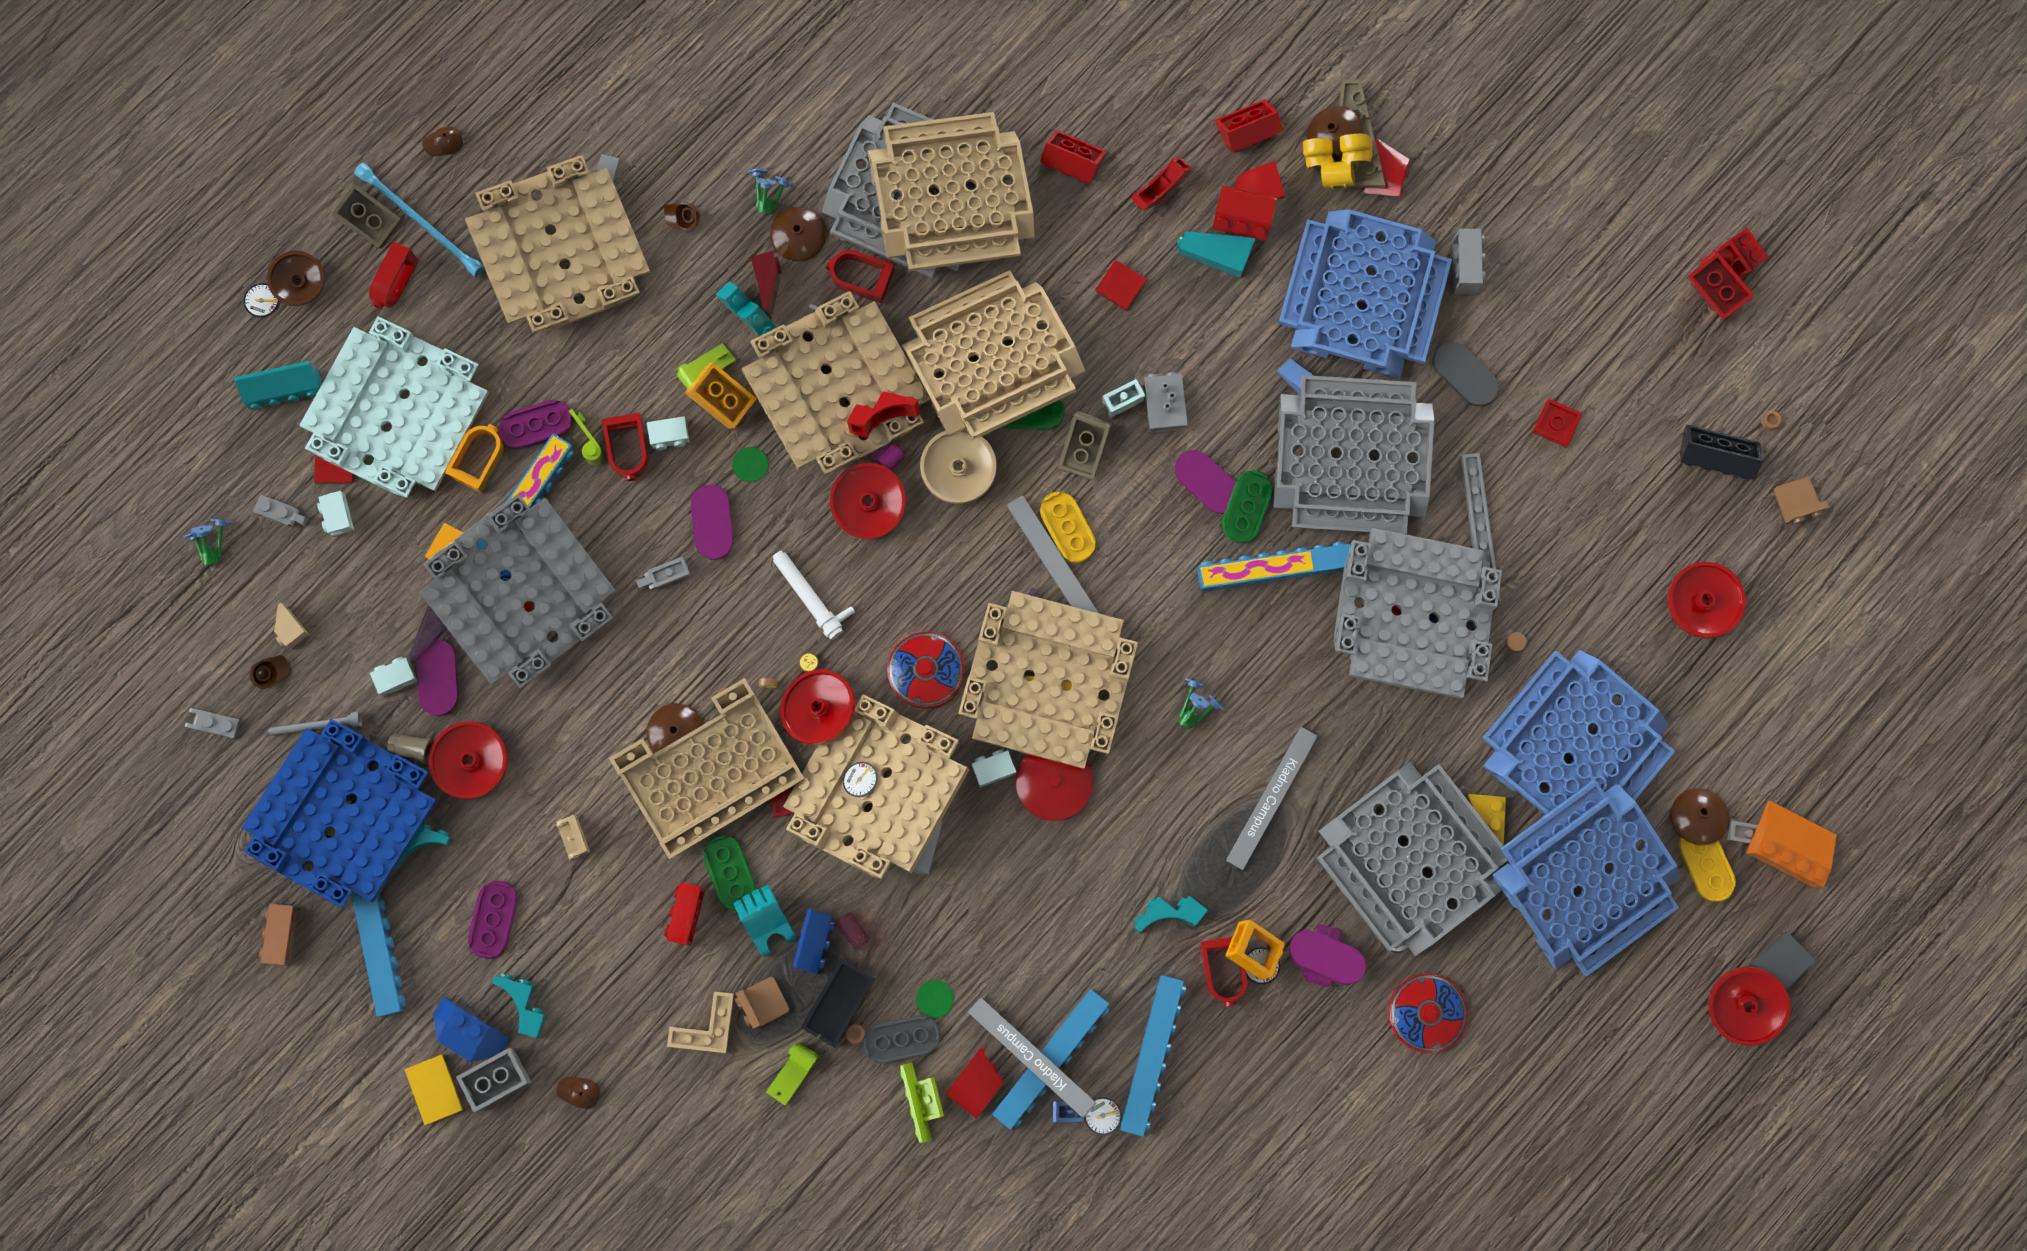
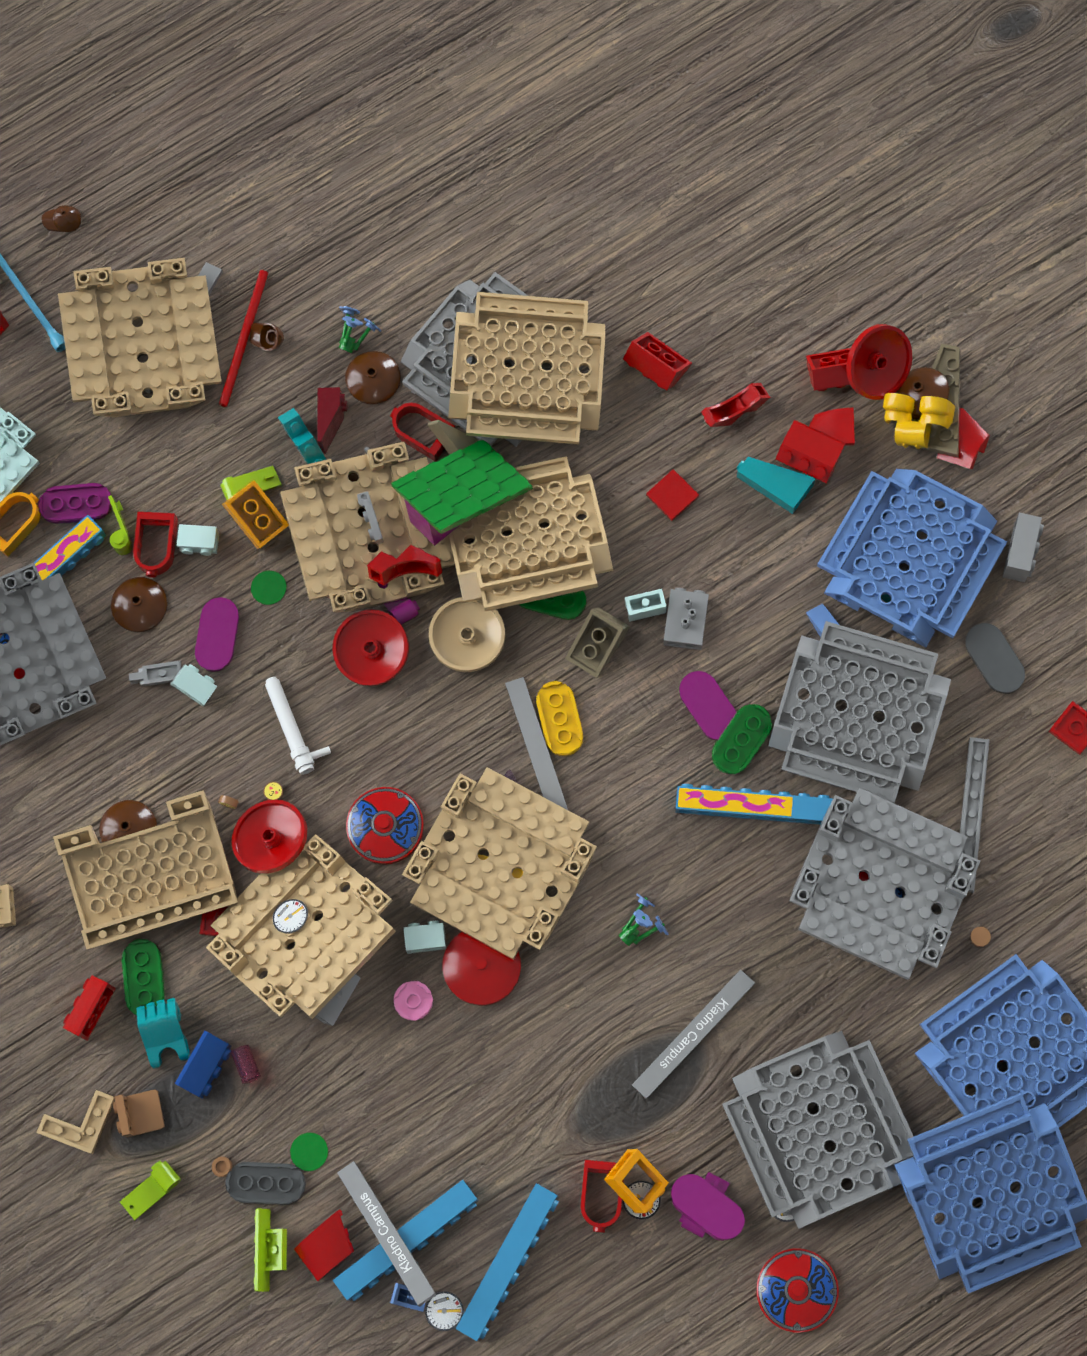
camera: 25 degrees right, 5 degrees down
(627, 522) = (145, 613): none -> reddish brown dish
(659, 222) = (243, 338): none -> red piece
(703, 576) = (194, 684): none -> light aqua brick
(836, 372) = (370, 516): none -> light grey hinge
(838, 1003) = (212, 1131): black piece -> none
(899, 280) = (450, 437): none -> dark tan slope
(917, 326) = (458, 489): none -> green piece
(997, 831) = (413, 1000): none -> bright pink tile
(1158, 909) = (550, 1117): teal arch -> none
(1290, 110) = (879, 361): none -> red dish
(1491, 811) = (912, 1102): yellow wing -> none

